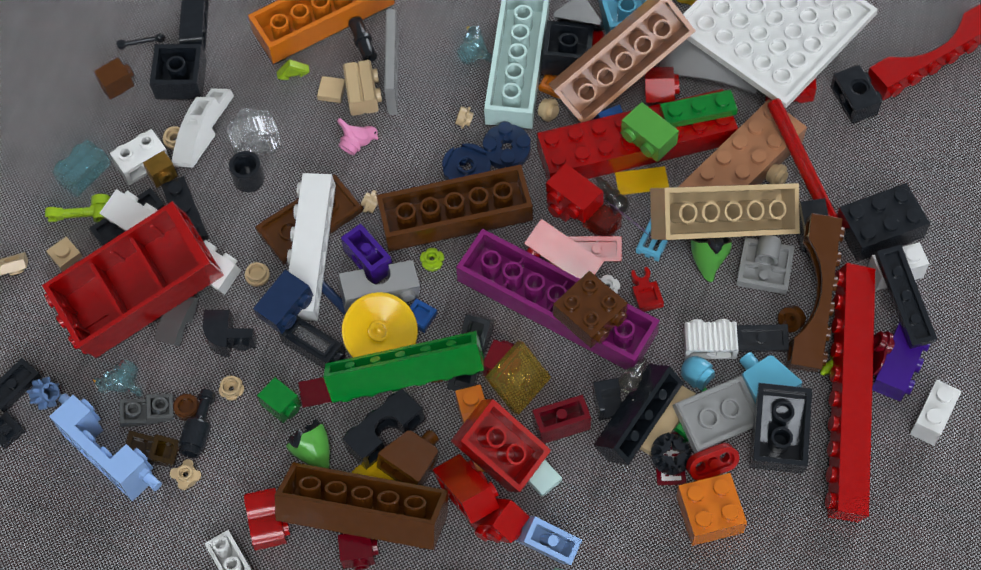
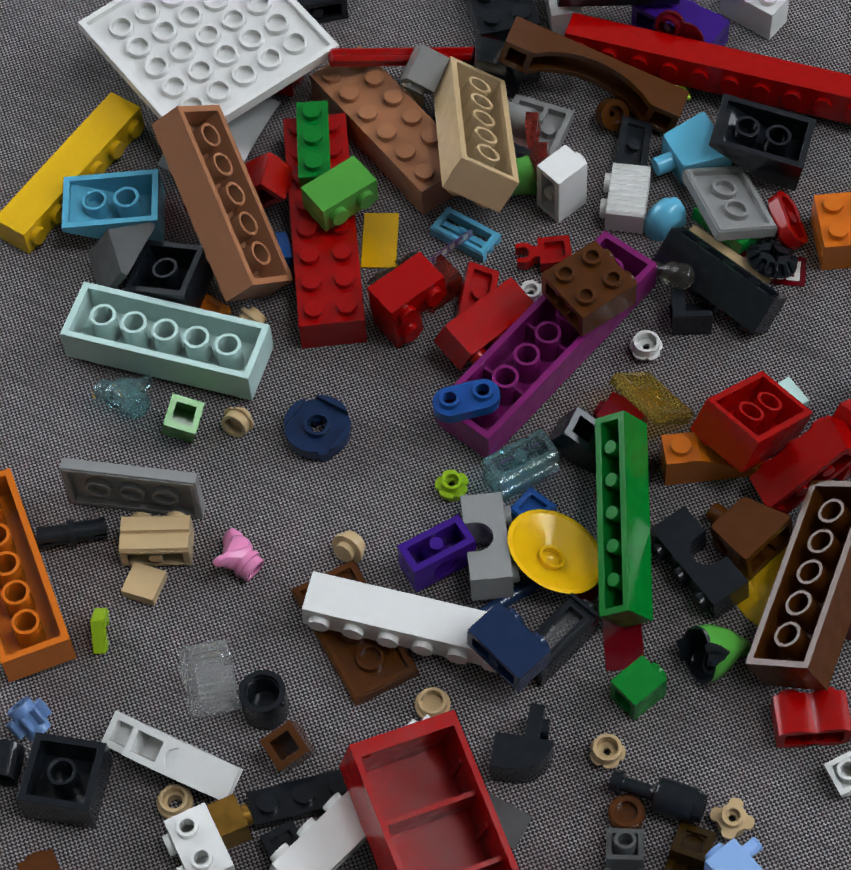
camera: 80 degrees left, 5 degrees down
(211, 189) = (288, 746): none -> reddish brown brick
(222, 44) = (28, 718): none -> medium blue gear
(446, 296) = (520, 465): none -> clear light blue brick
(454, 80) = (182, 418): none -> bright green brick
(455, 207) = (386, 442): reddish brown brick -> none
(482, 244) = (467, 402): none -> blue plate
(511, 134) = (289, 363): dark blue plate -> none
(561, 419) = (715, 356): dark red brick -> none
(574, 366) = (649, 339): none -> white plate
(705, 287) = (562, 183): none -> white brick
(727, 266) = (538, 149): none -> clear red slope
(786, 170) = (424, 70): none -> light grey brick

